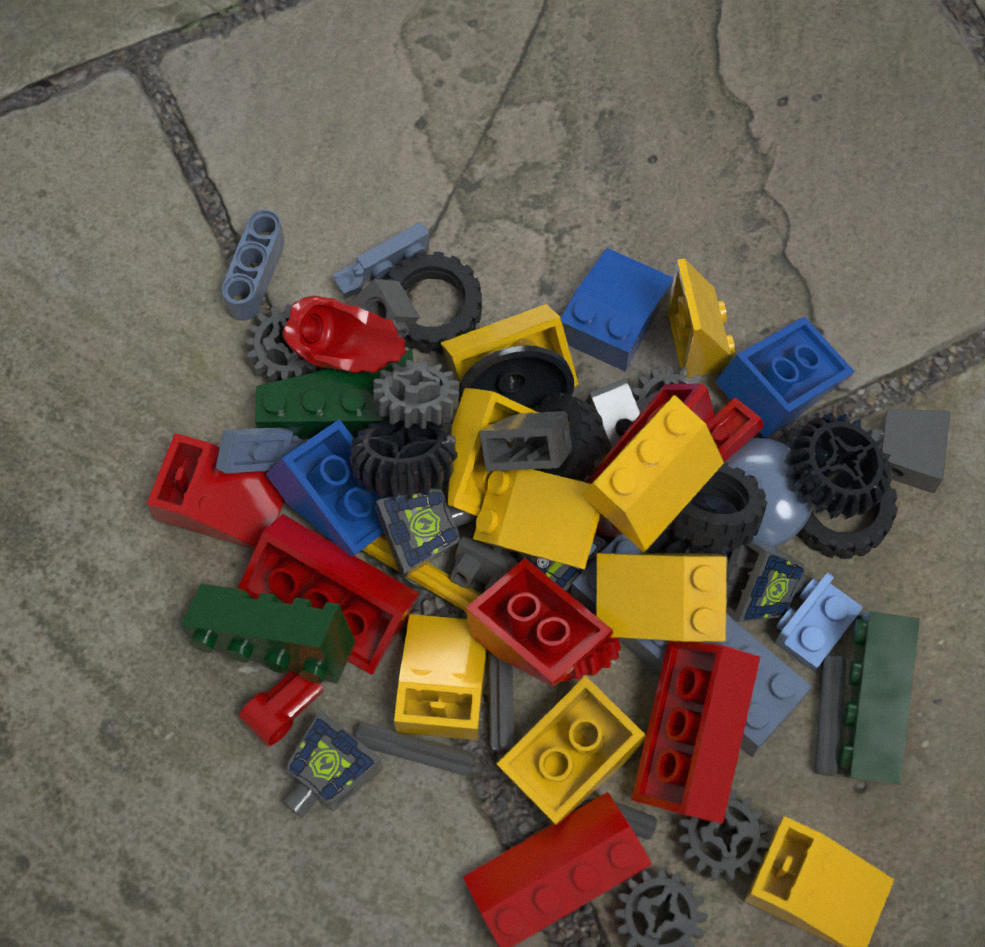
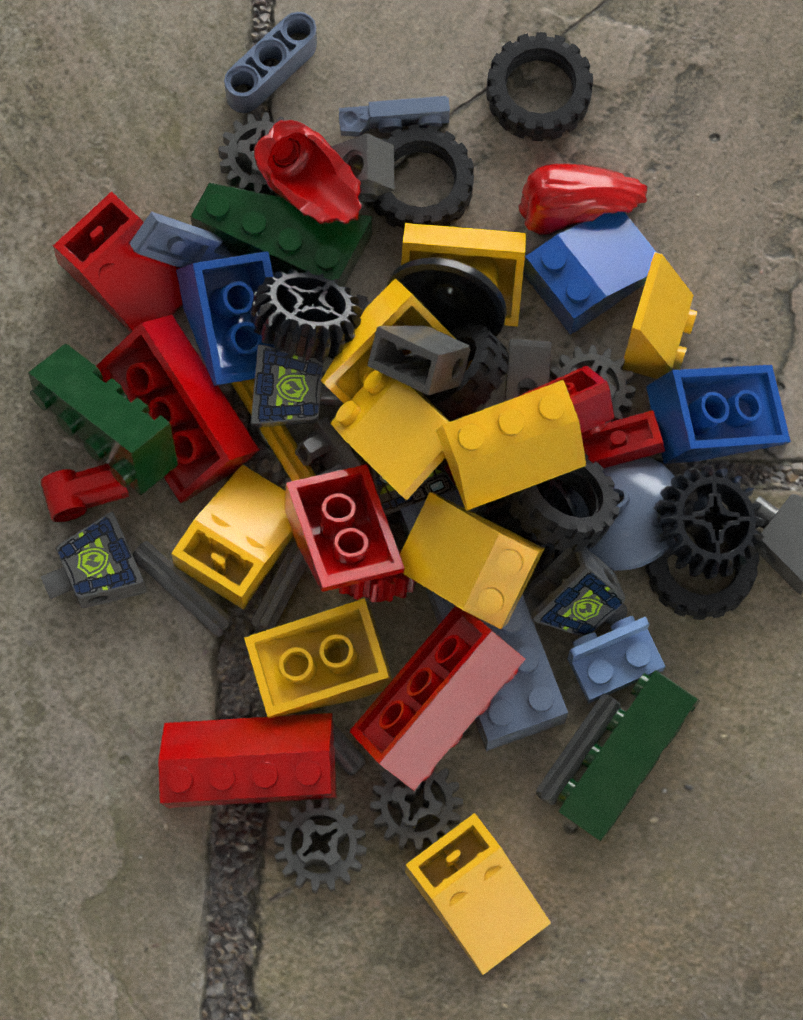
camera: 25 degrees right, 5 degrees up
(416, 394) = (347, 262): dark grey gear -> none
(497, 150) = (542, 49): none -> black tyre
(567, 254) = (576, 194): none -> red hair

